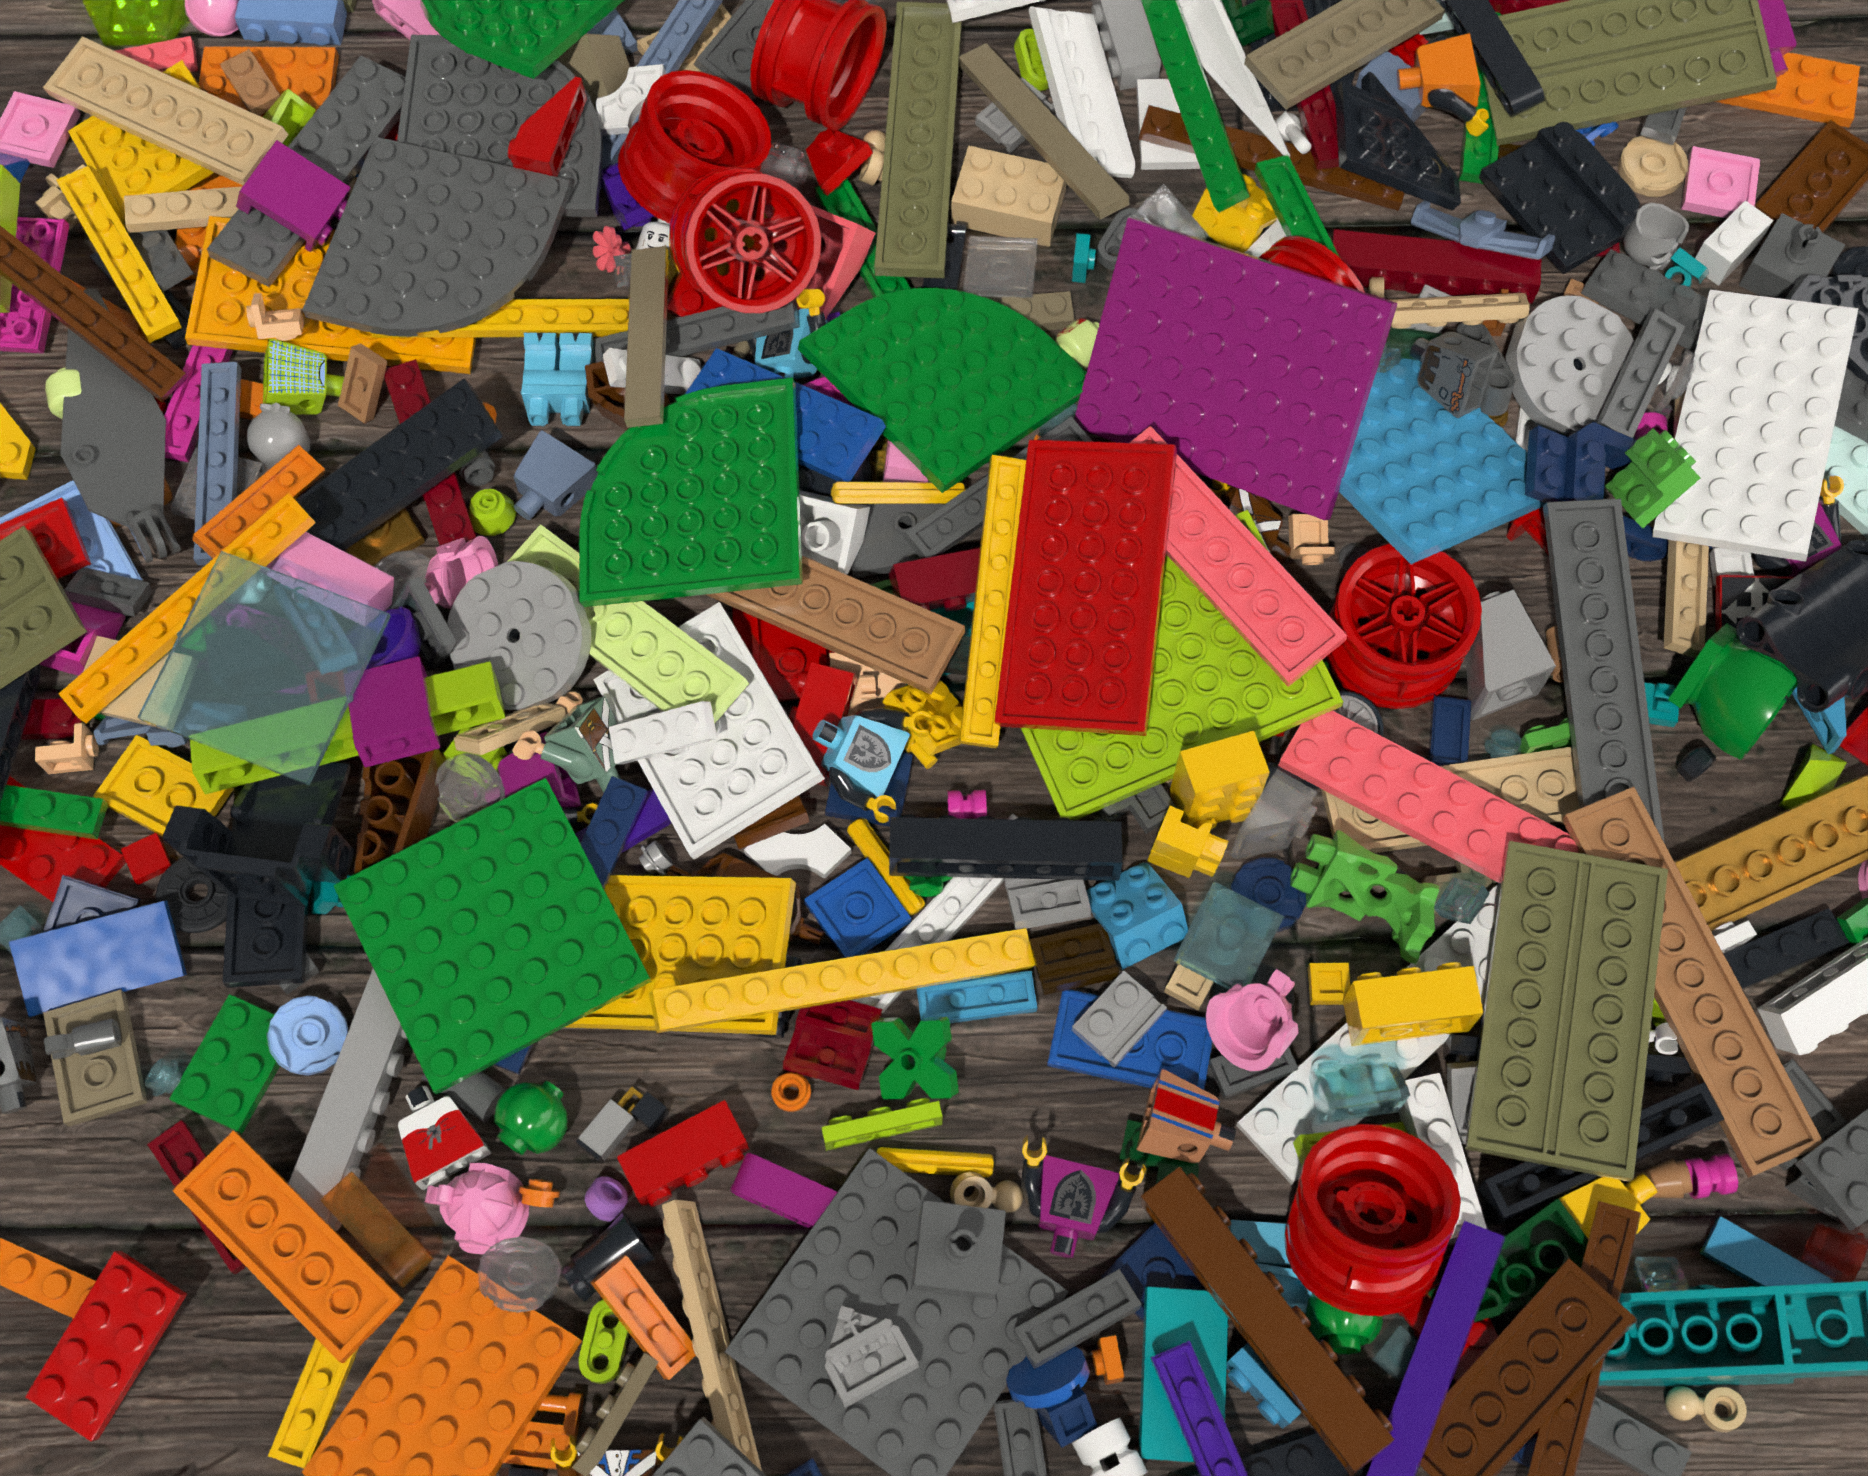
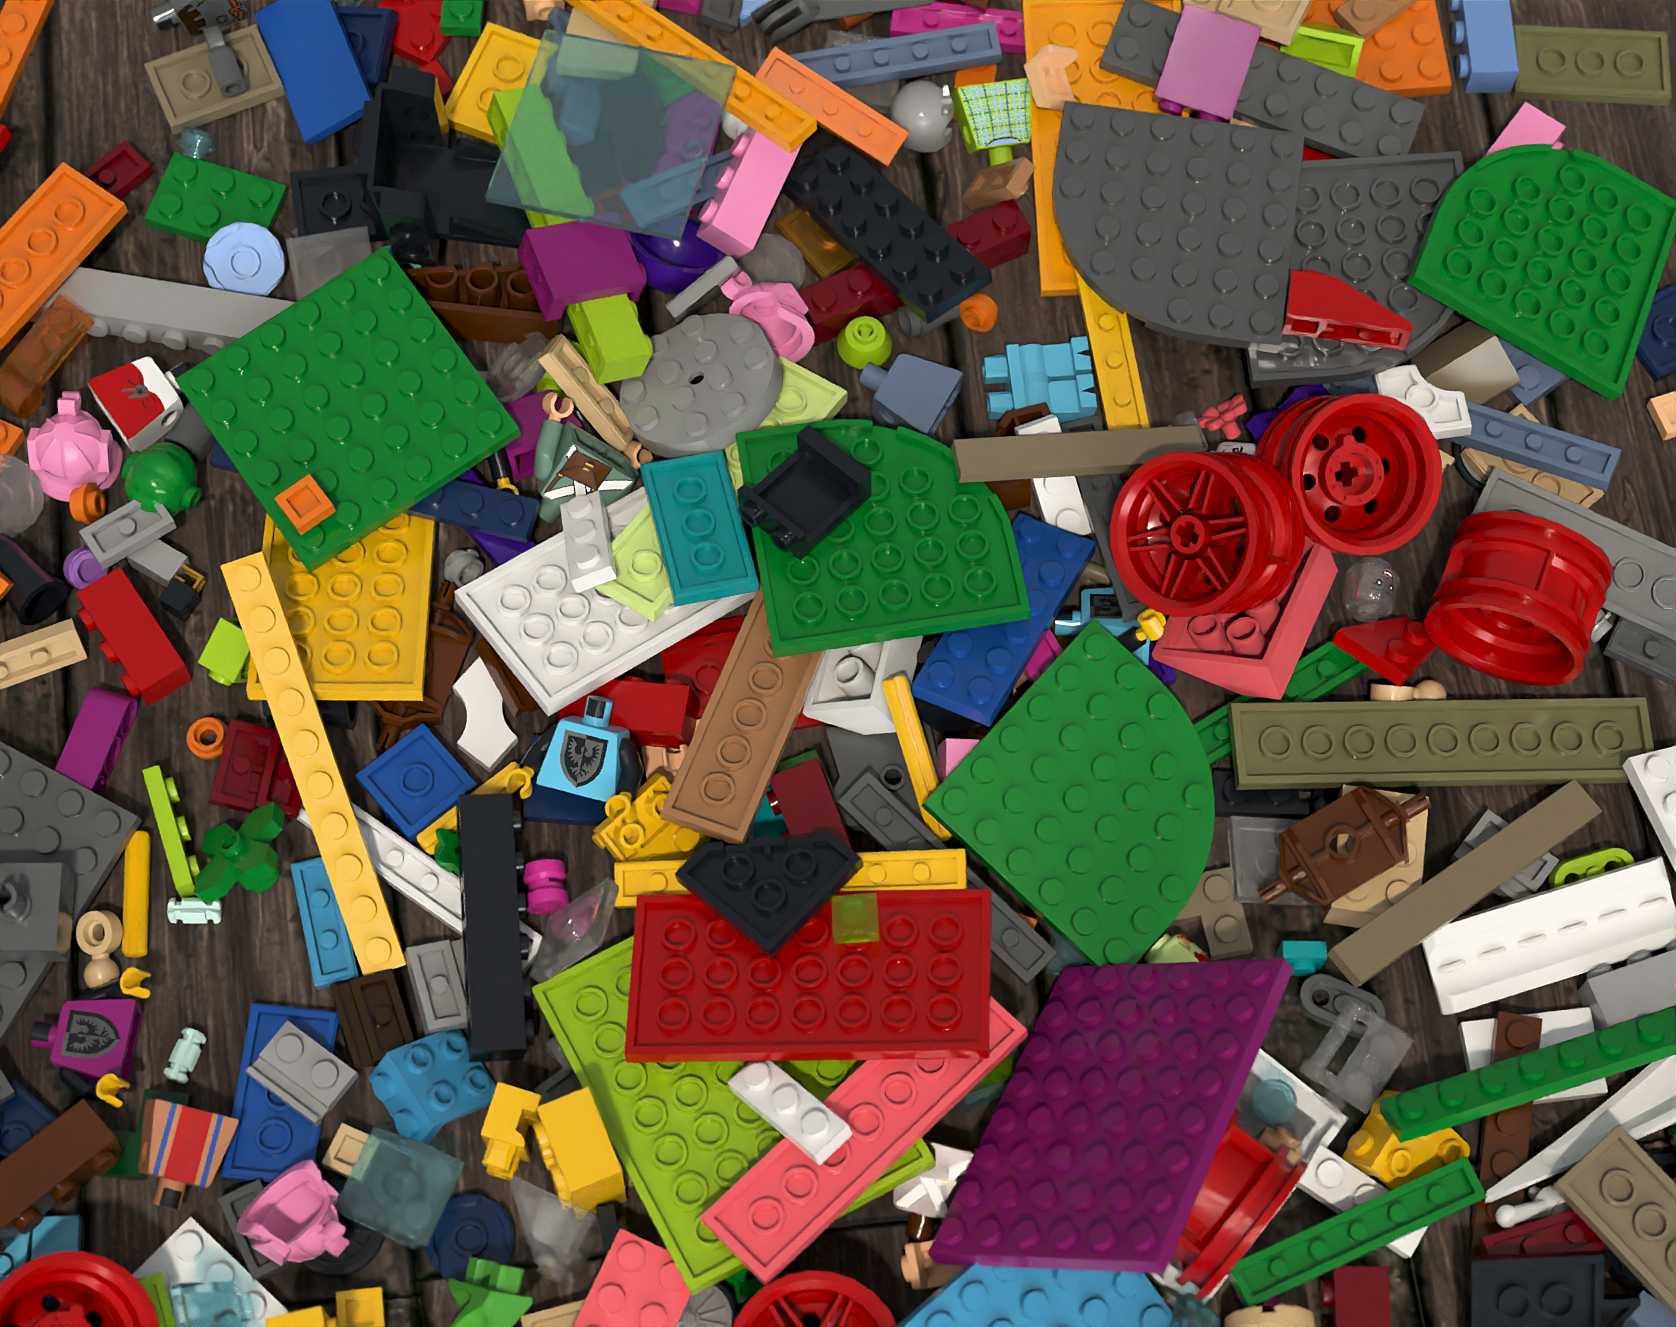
camera: 80 degrees right, 0 degrees up
(329, 953) = (325, 256): none -> clear tile
(582, 1150) = (125, 532): none -> light grey plate
(595, 966) = (305, 504): none -> orange plate
(655, 540) = (806, 495): none -> black panel
(665, 639) = (699, 528): none -> teal tile
(714, 1059) = (227, 653): none -> lime brick
(956, 1113) = (194, 910): none -> light aqua piece
(1005, 606) = (770, 884): none -> black plate
(1008, 229) = (1325, 876): none -> reddish brown plate
(1018, 777) = (574, 931): none -> clear tile
(1044, 541) = (855, 918): none -> clear neon green plate
(1090, 1124) = (184, 1055): none -> light aqua piece
(1203, 606) = (790, 1109): none -> white plate

